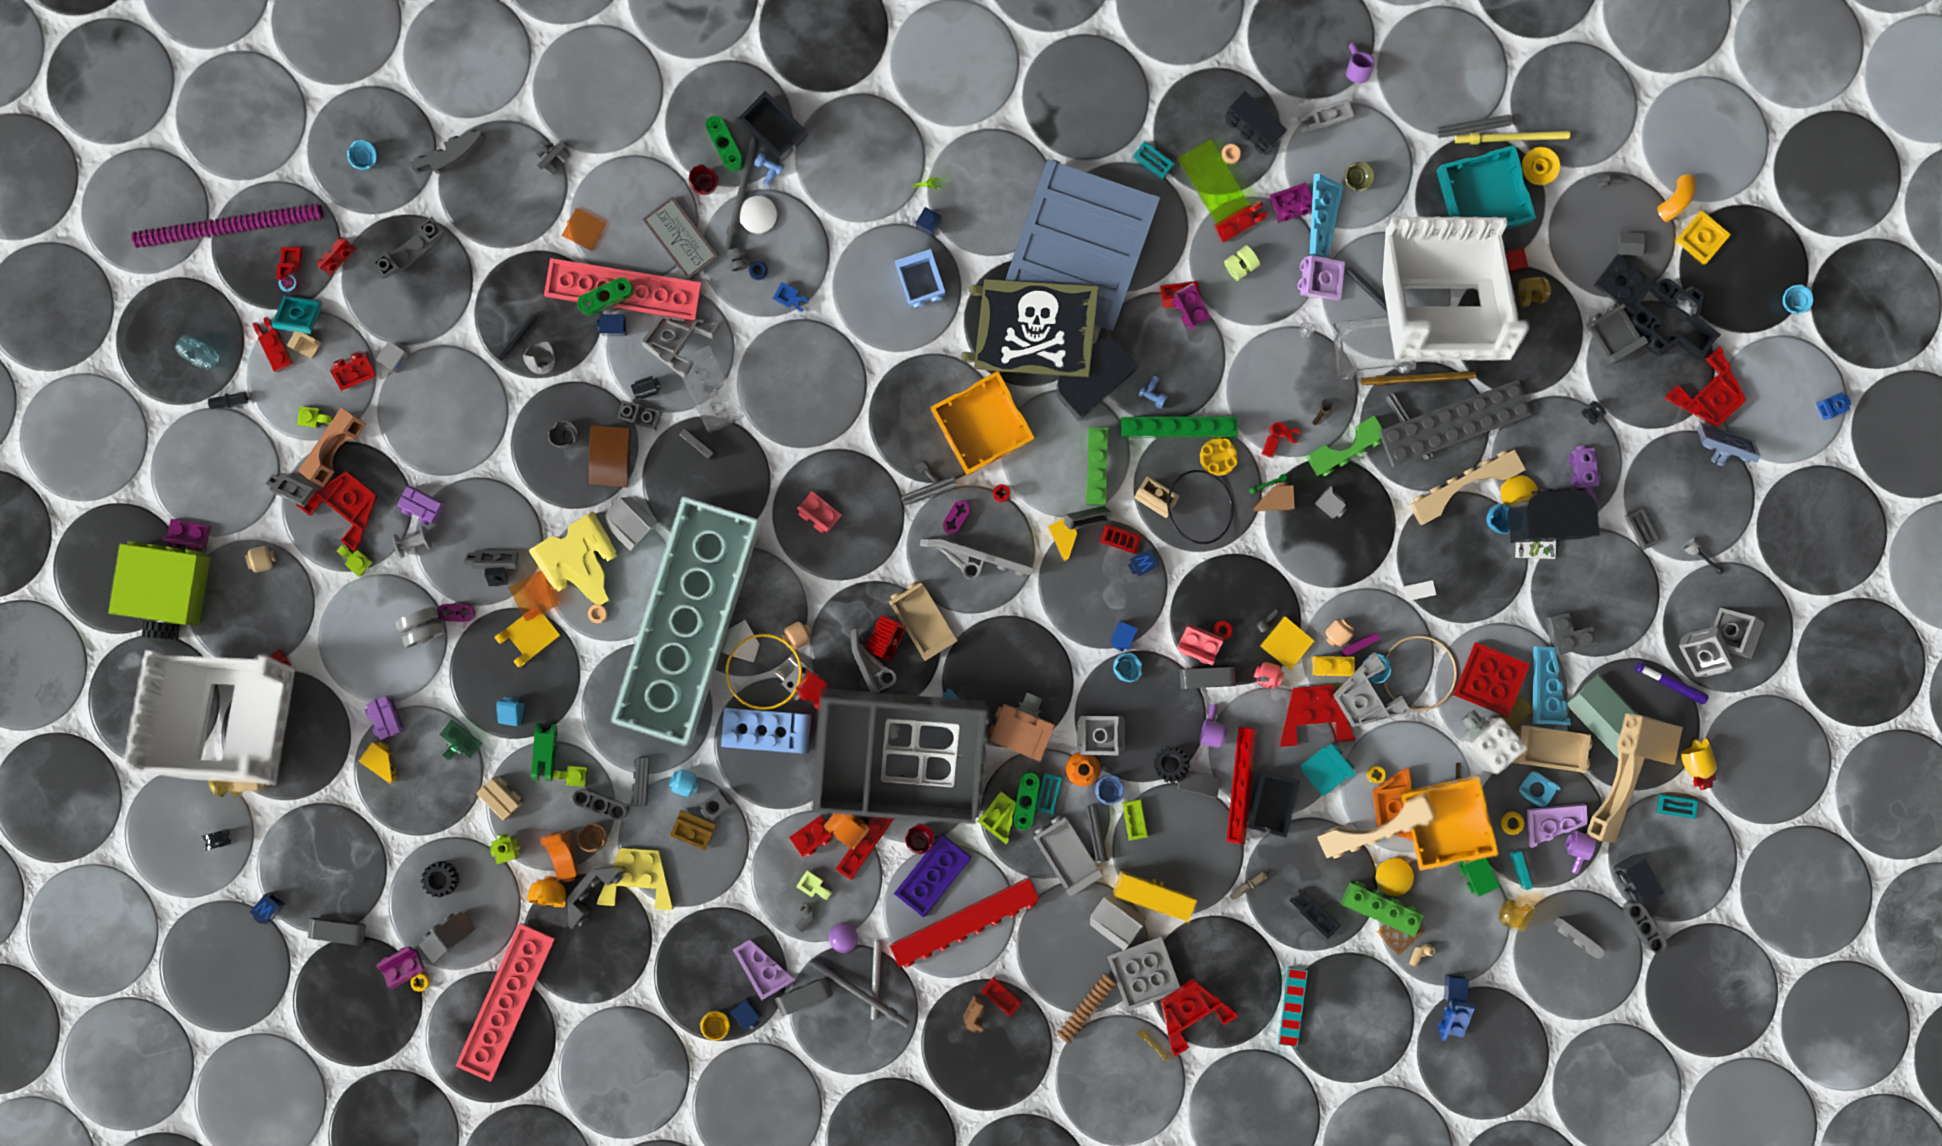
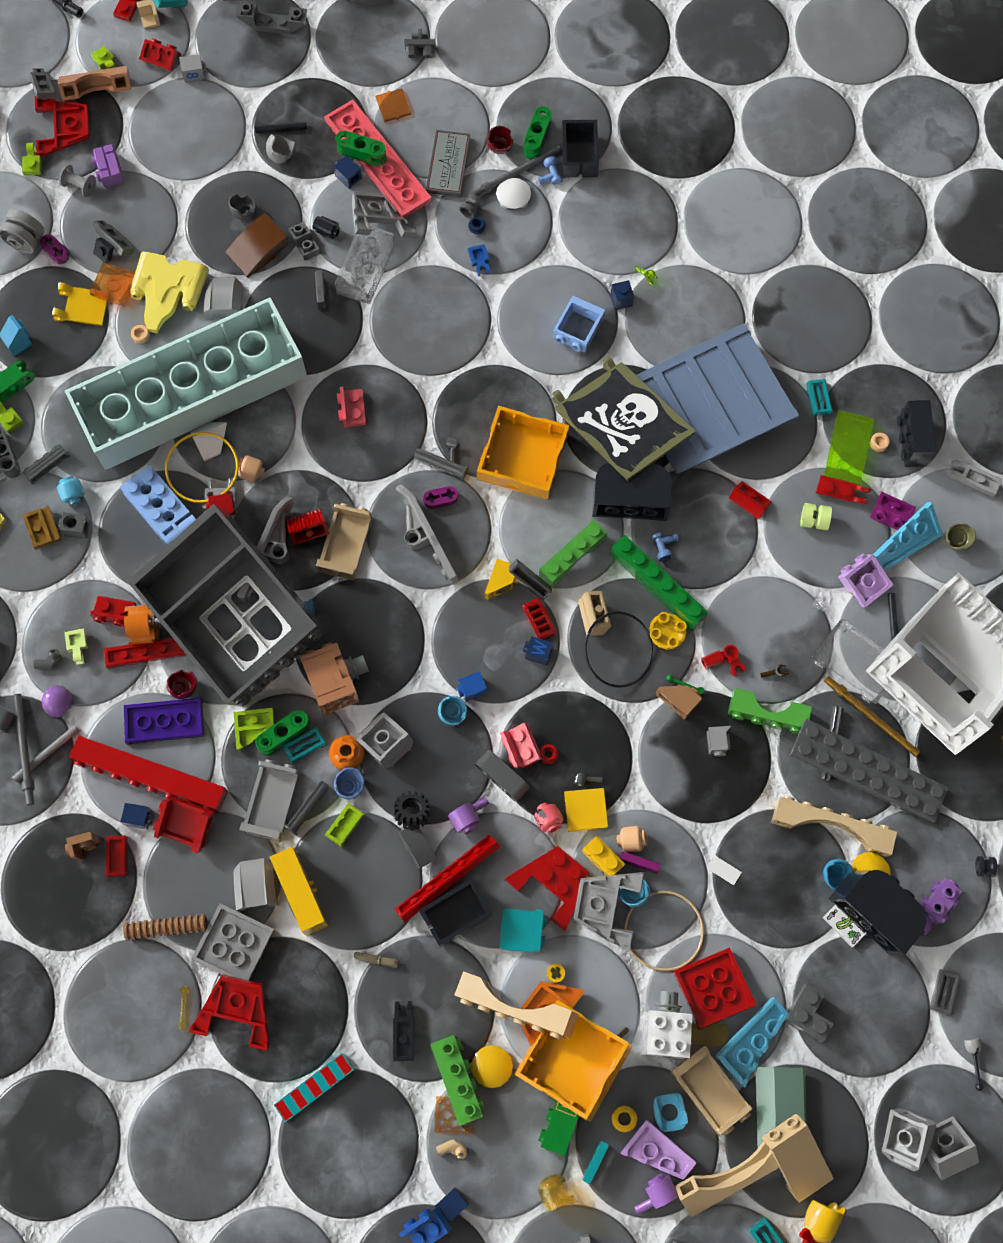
camera: 45 degrees right, 15 degrees down
(988, 957) = (137, 816): none -> dark blue brick
(1005, 489) = (489, 504): red bush -> none
(1026, 929) = (184, 823): none -> red panel
(1191, 306) = (749, 511): magenta bracket -> none
(1674, 684) = (861, 1146): dark purple piece -> none

